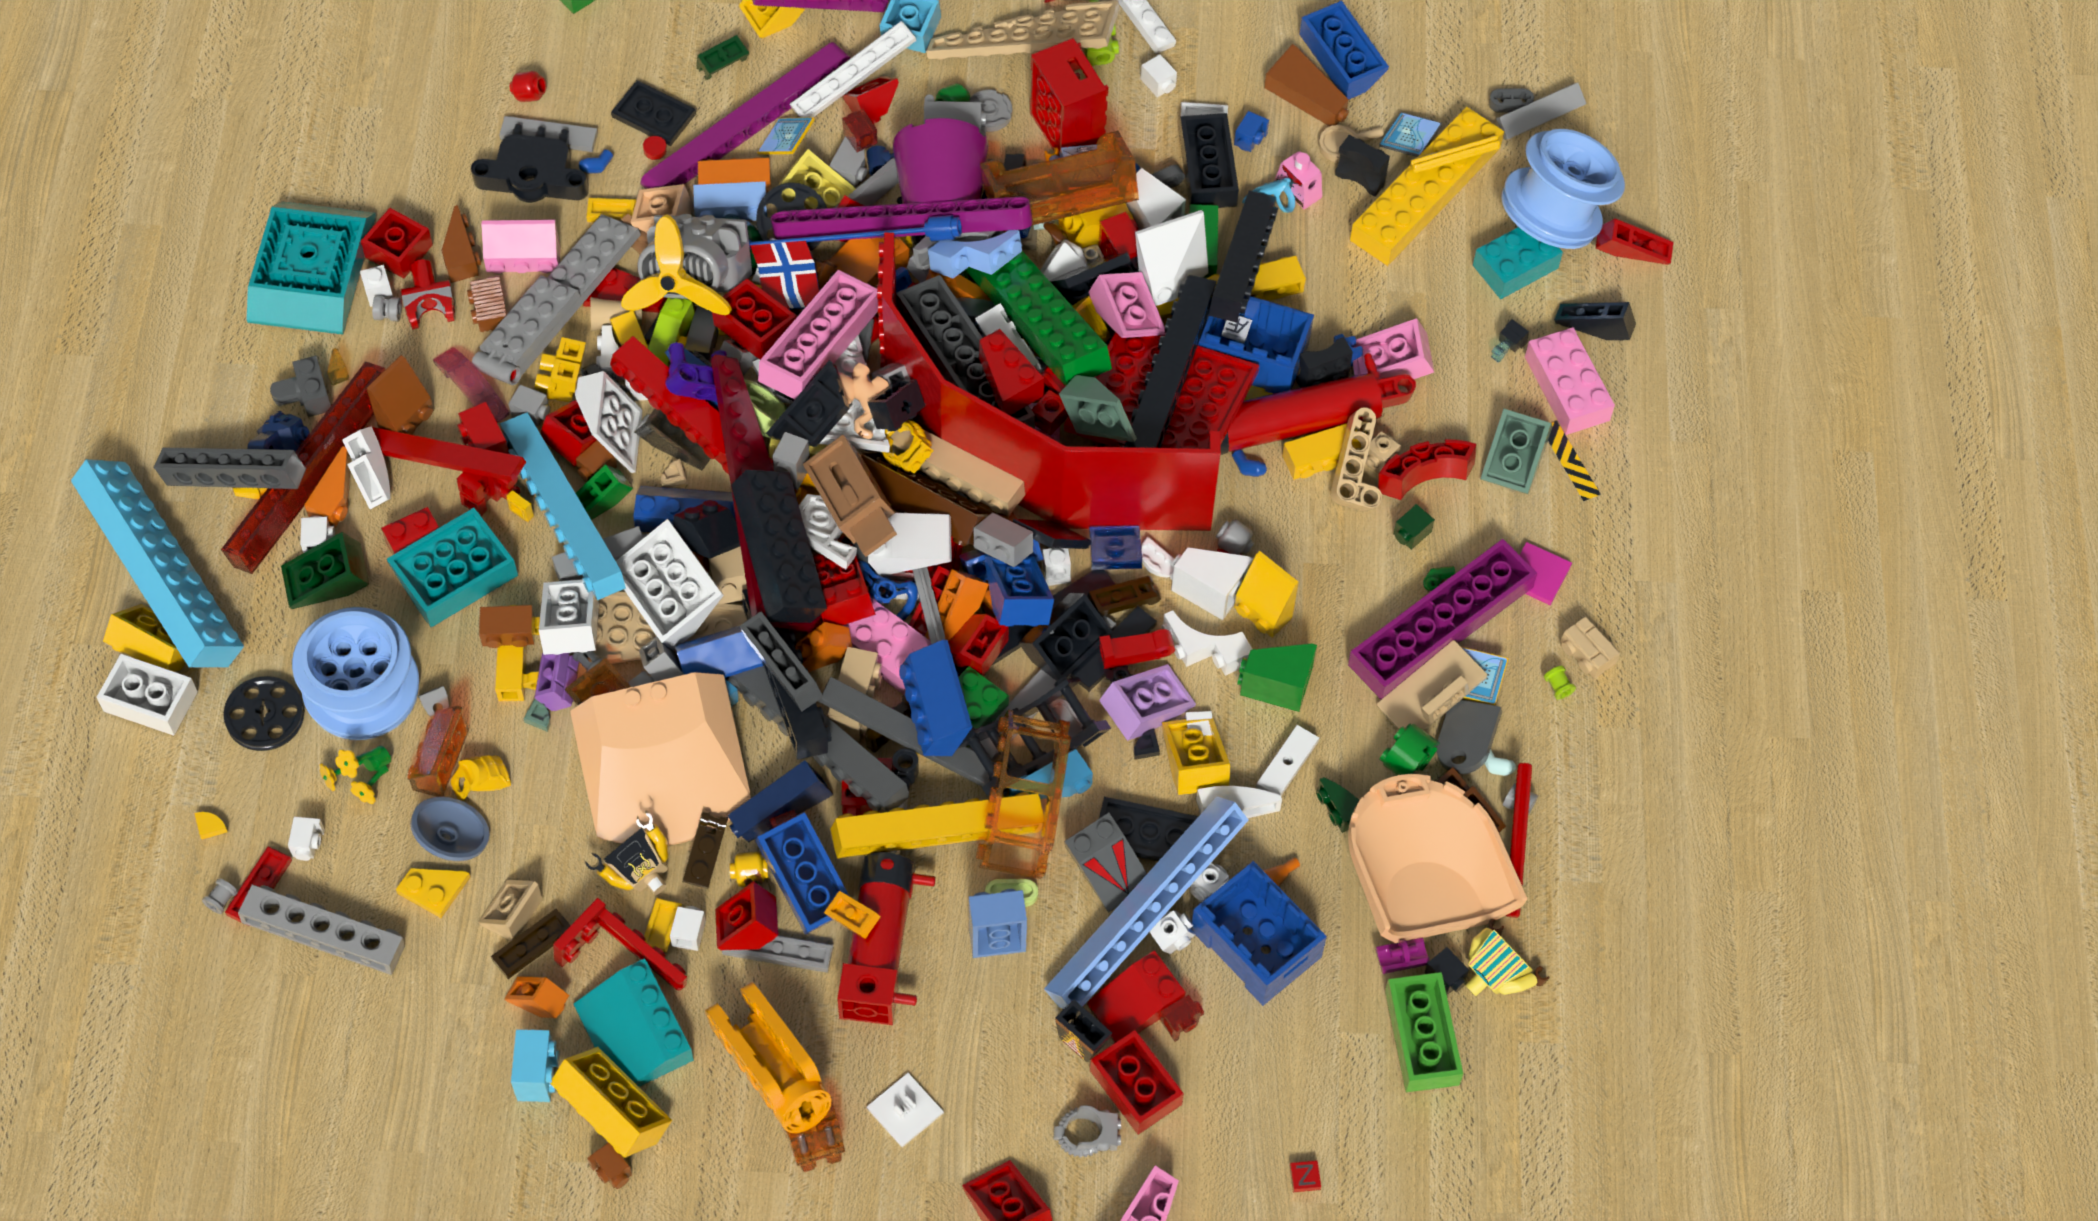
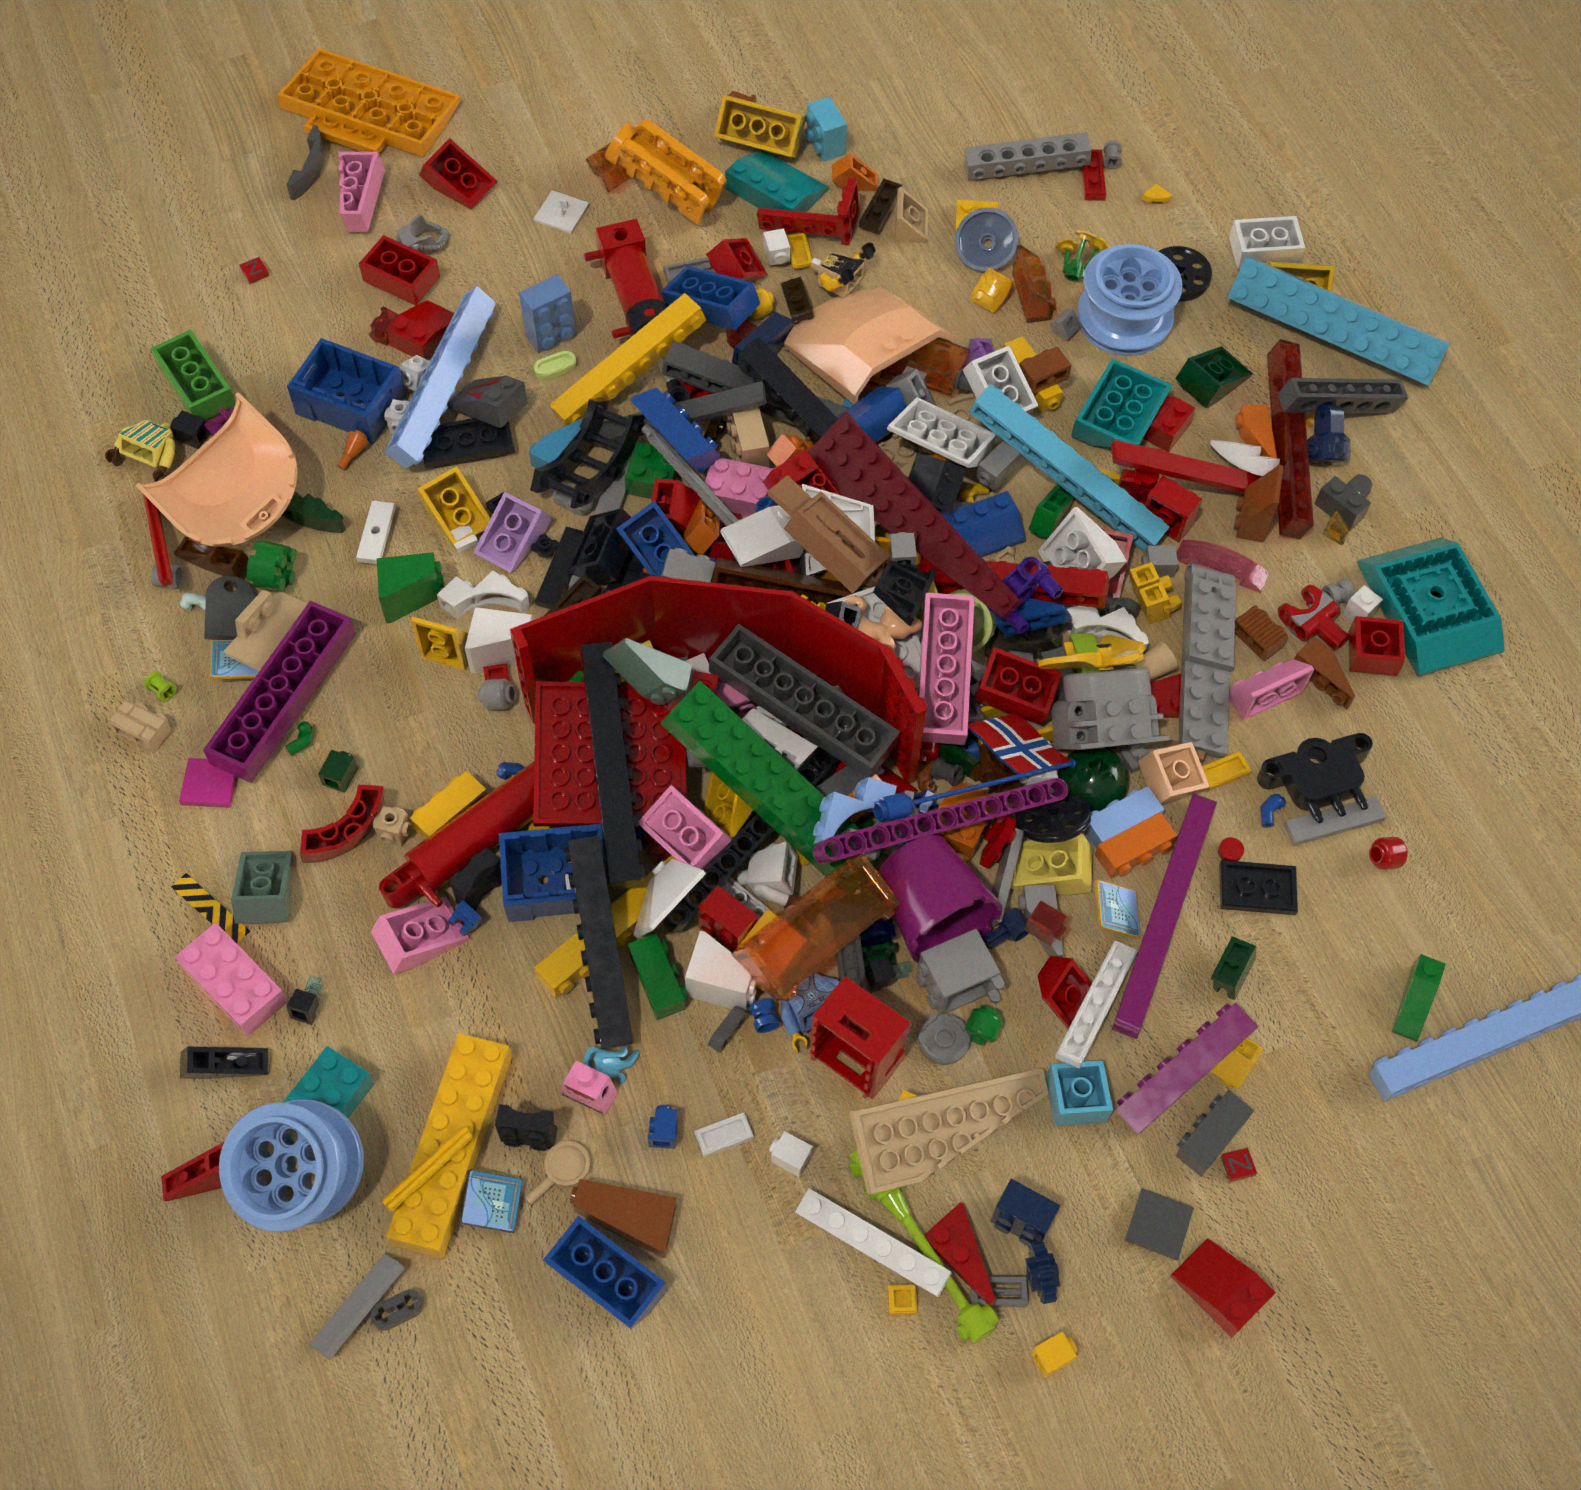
camera: 155 degrees right, 0 degrees up
(305, 837) = (1084, 206): white brick -> none
(315, 531) = (1242, 393): white brick -> none
(778, 546) = (863, 467): black brick -> none
(781, 661) = (806, 385): dark grey brick -> none
(852, 914) = (656, 271): light orange plate -> none
(1010, 373) = (750, 674): red wedge -> none
(1052, 791) = (559, 427): clear orange windscreen -> none
(1084, 1033) = (449, 272): black torso -> none
(1090, 270) = (742, 855): black tile -> none
(1135, 648) = (540, 560): red leg -> none
(1208, 160) = (690, 1064): black brick -> none
(1250, 800) = (402, 484): white slope -> none
(1358, 459) = (410, 779): tan beam -> none

